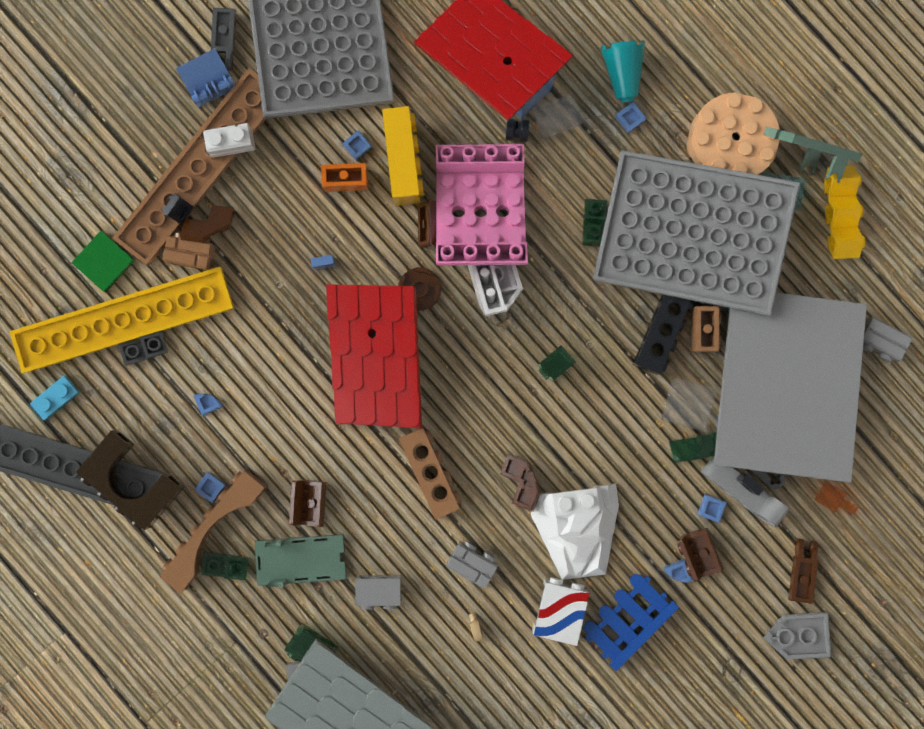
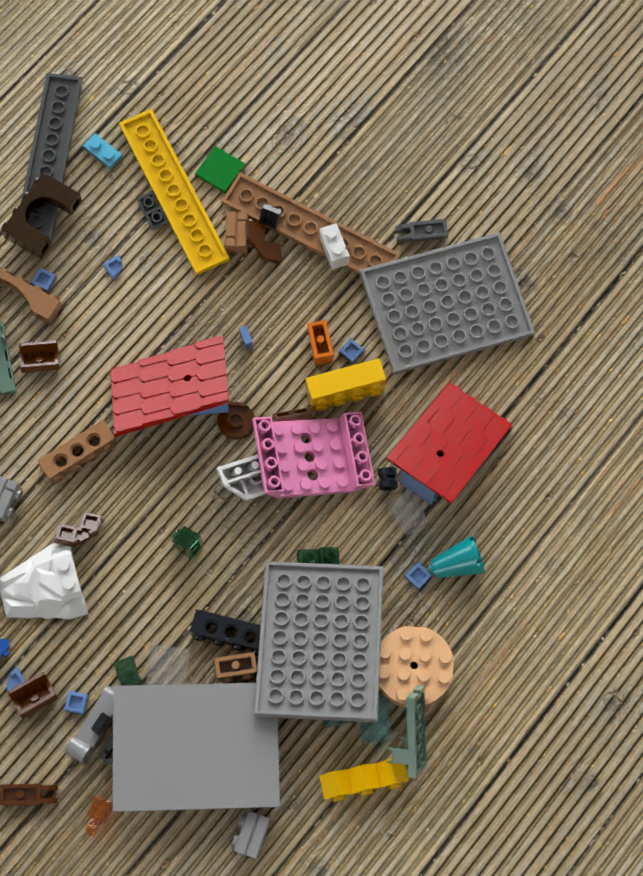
camera: 80 degrees right, 15 degrees down
(206, 77) = (385, 222): medium blue hinge -> none

